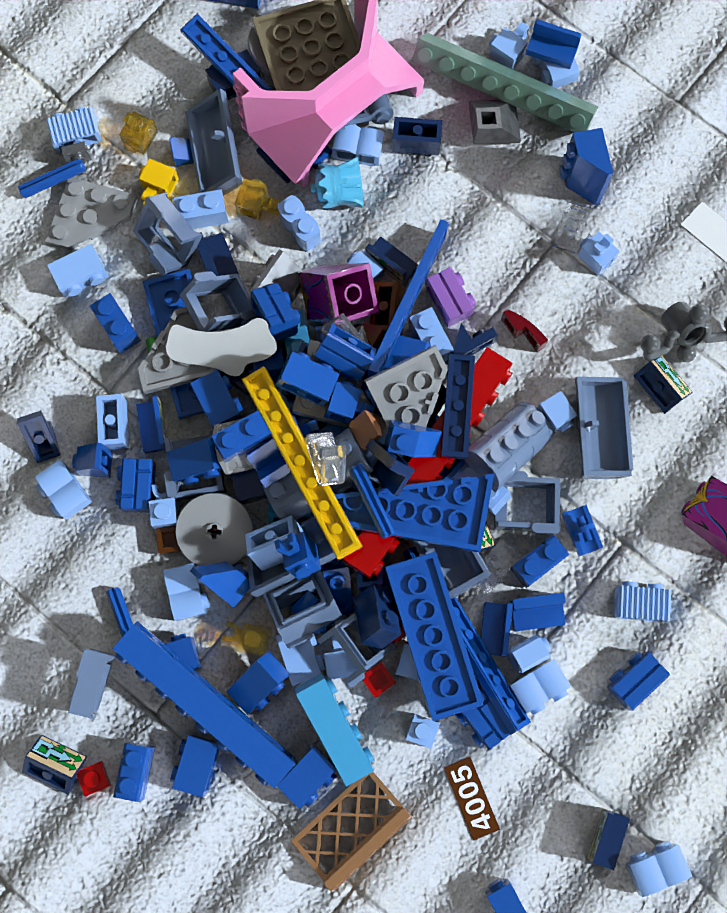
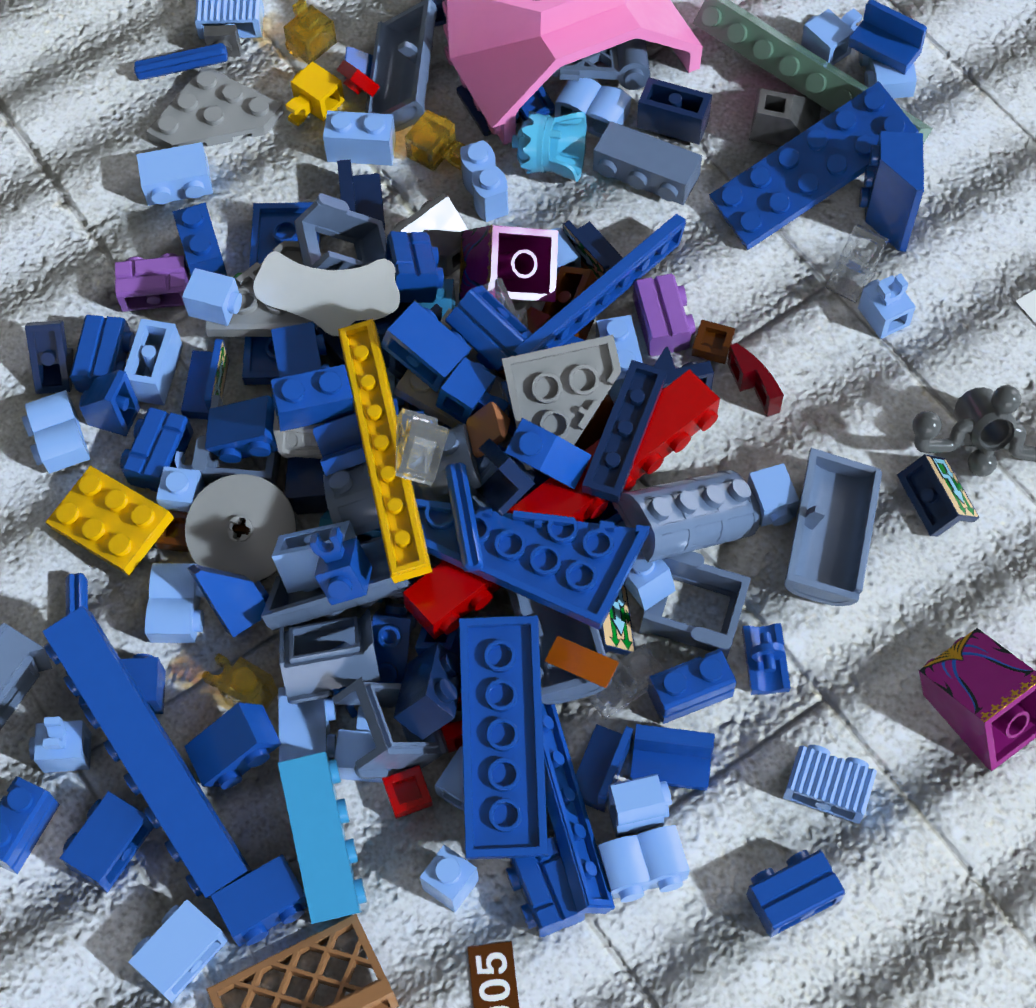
camera: 15 degrees right, 15 degrees down
(74, 423) = (100, 349): none -> blue brick
(91, 359) = (151, 282): none -> medium lavender brick
(122, 545) = (110, 520): none -> yellow plate
(142, 369) = (212, 297): none -> light blue brick
(144, 710) = (61, 745): none -> light blue brick
(162, 252) = (300, 120): sand blue piece -> none
(186, 165) = (357, 80): none -> red plate
(265, 823) = (177, 949): none -> light blue brick
(407, 181) = (646, 163): none -> sand blue brick
(468, 569) = (581, 661): none -> orange sticker
(489, 308) = (713, 341): none -> reddish brown plate
(525, 158) = (808, 166): none -> blue plate

